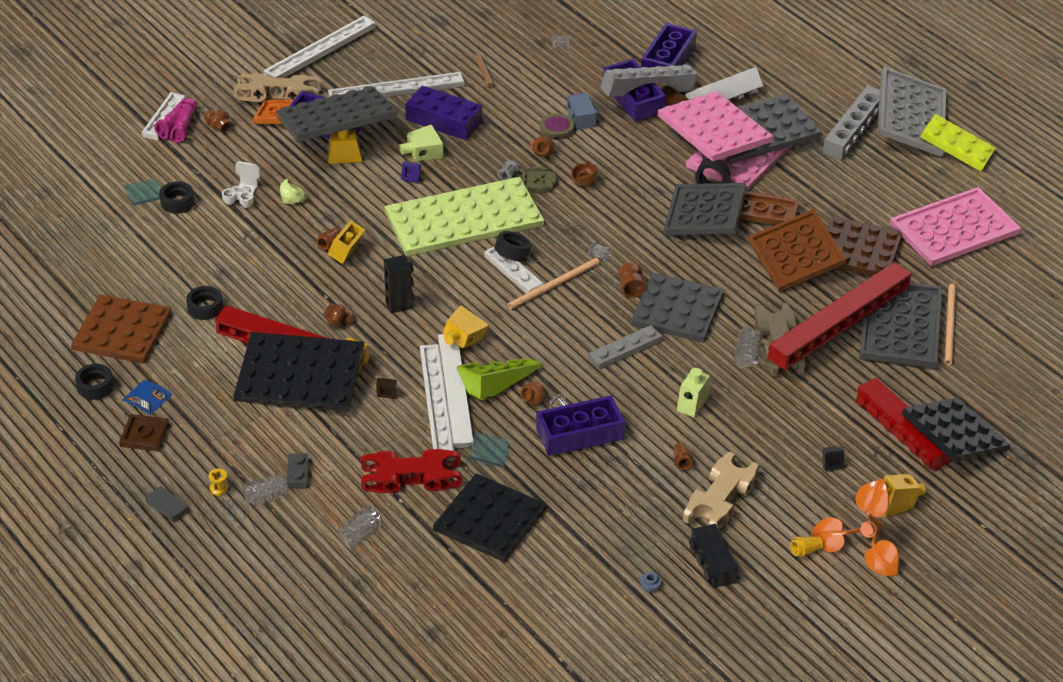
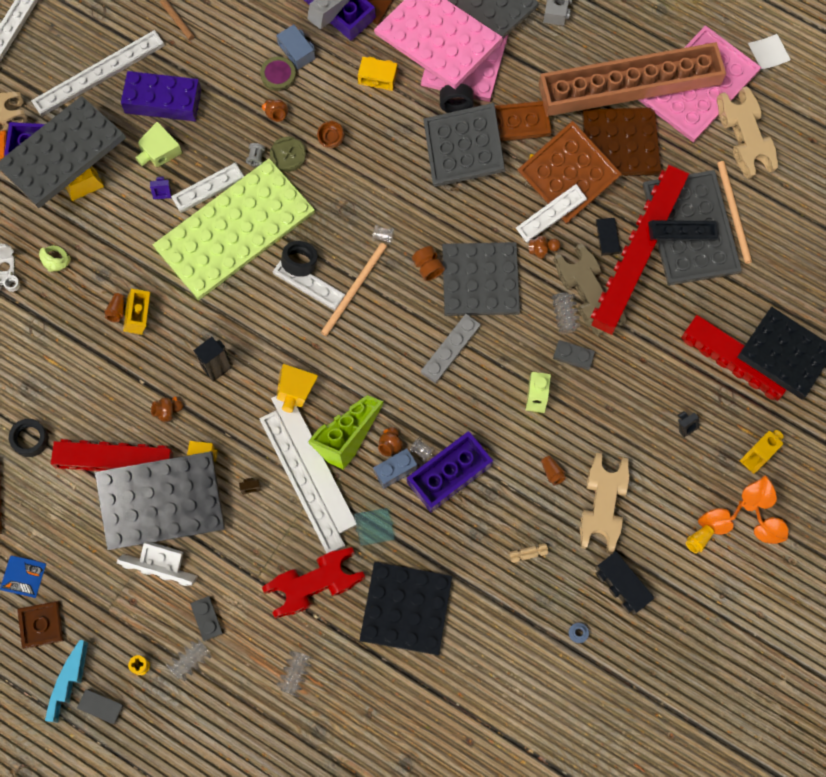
camera: 20 degrees left, 30 degrees up
(149, 471) = (71, 672): none -> medium azure slope
(277, 415) = (159, 561): none -> white bracket
(451, 183) = (207, 188): none -> white tile
(523, 410) = (395, 468): none -> sand blue brick
(629, 509) = (527, 553): none -> tan axle
(648, 145) = (377, 73): none -> yellow brick
(742, 382) = (573, 355): none -> dark grey plate
(746, 297) = (540, 246): none -> dark orange animal
(766, 275) = (551, 213): none -> white tile
(815, 304) = (607, 236): none -> black tile
(886, 198) = (631, 79): none -> nougat brick
(888, 311) = (682, 230): none -> black tile
(986, 277) = (743, 121): none -> tan piece
(1036, 224) = (769, 52): none -> white sticker

